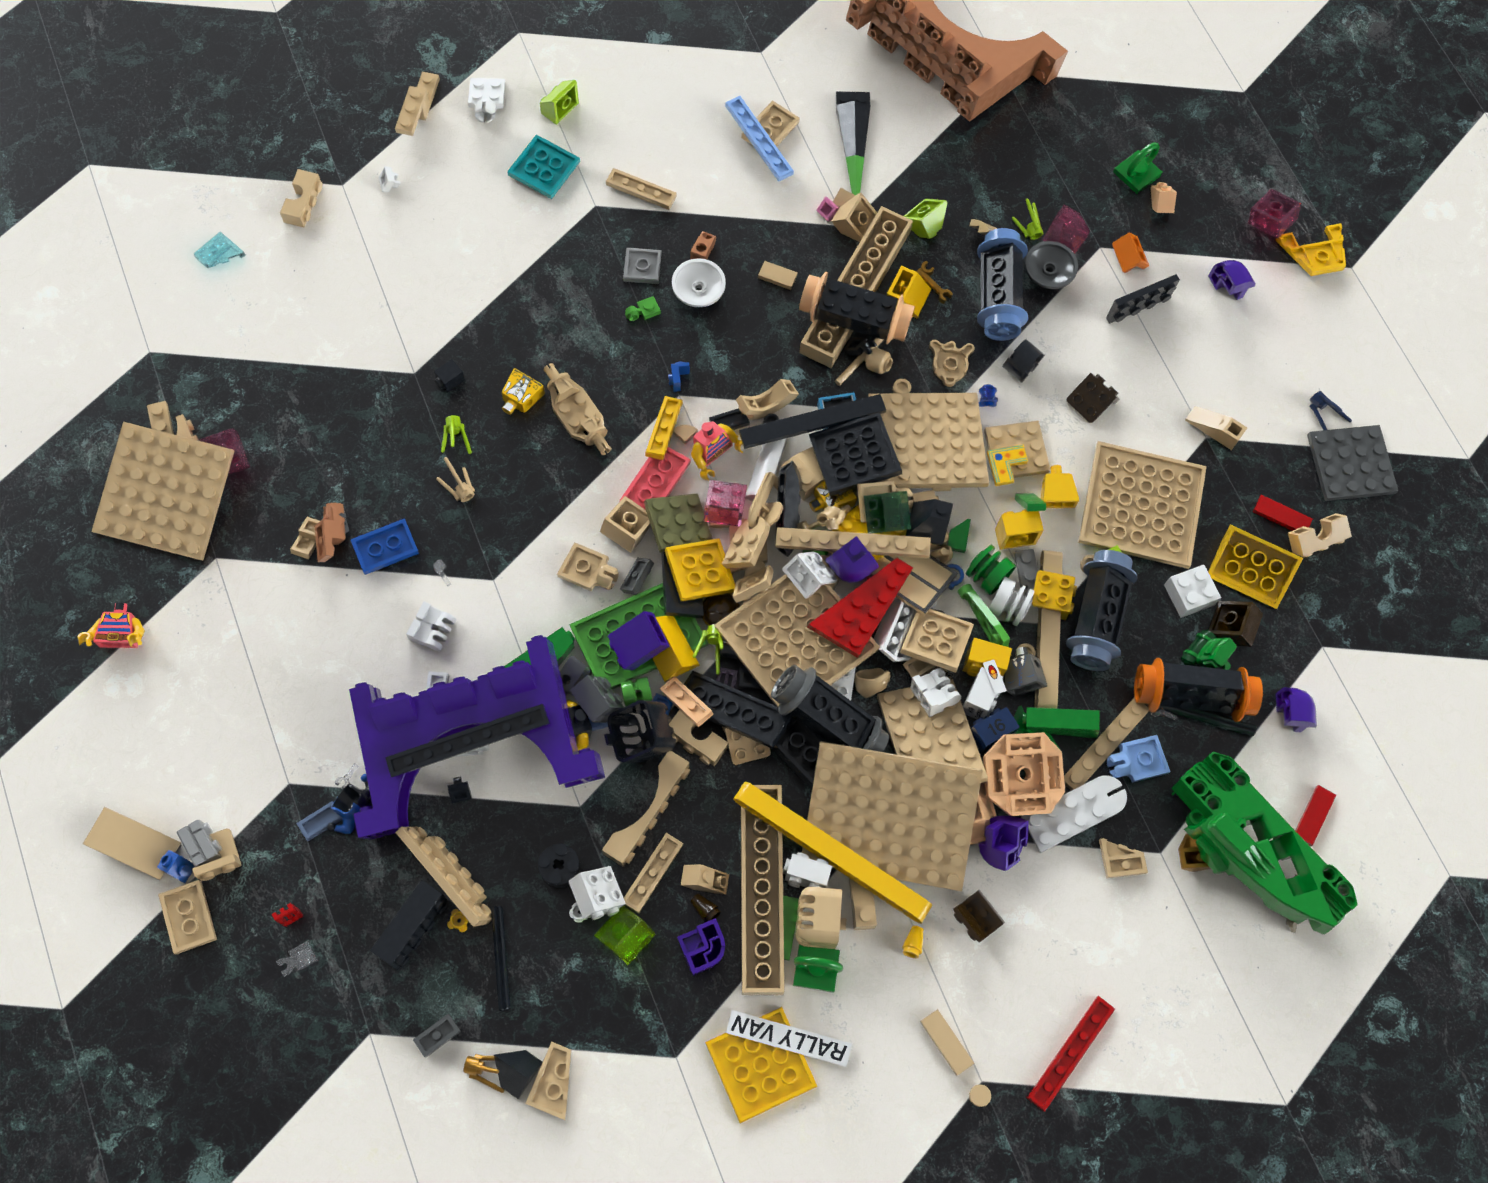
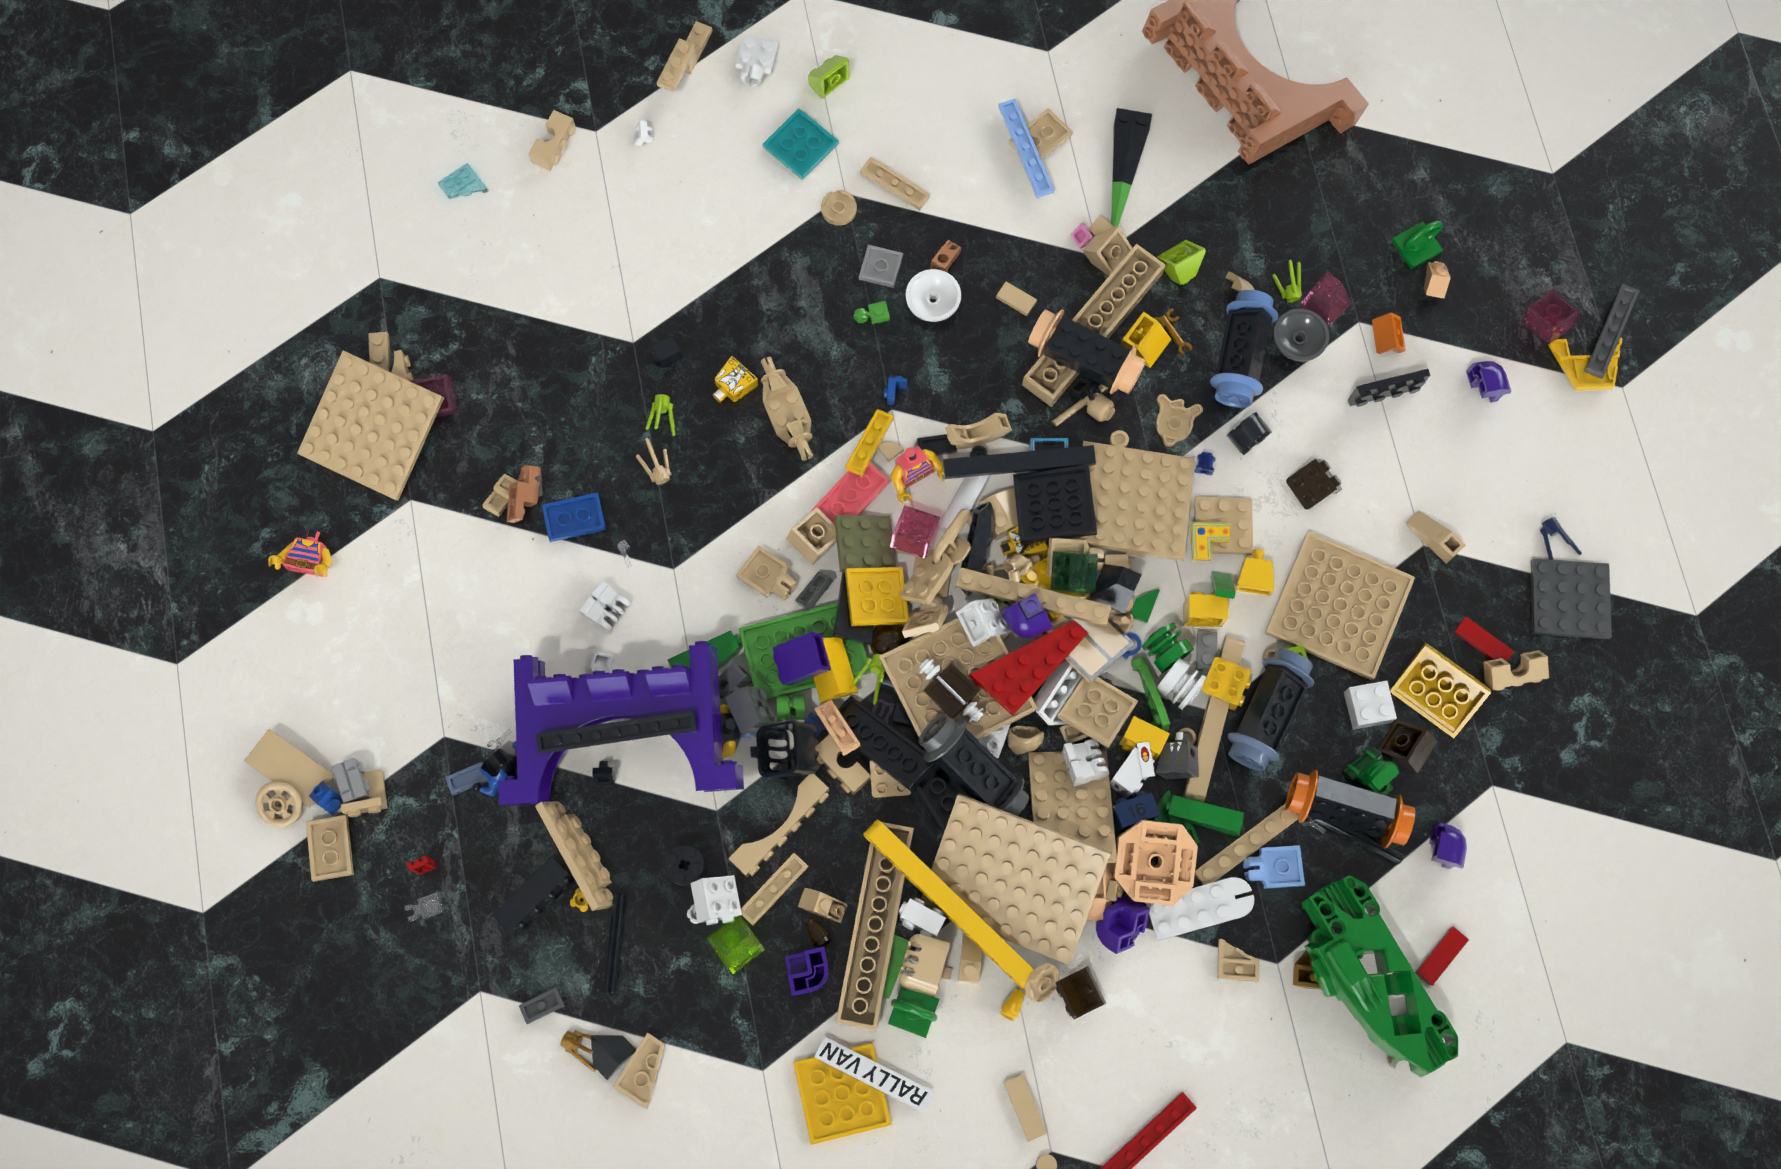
camera: 15 degrees right, 5 degrees up
(118, 896) = (269, 816): none -> tan plate
(591, 219) = (838, 207): none -> tan tile
(792, 644) = (951, 691): none -> dark brown plate
(938, 913) = (1042, 982): none -> tan tile
(990, 810) = (1114, 891): none -> tan tile
(1331, 219) = (1611, 331): none -> dark grey tile

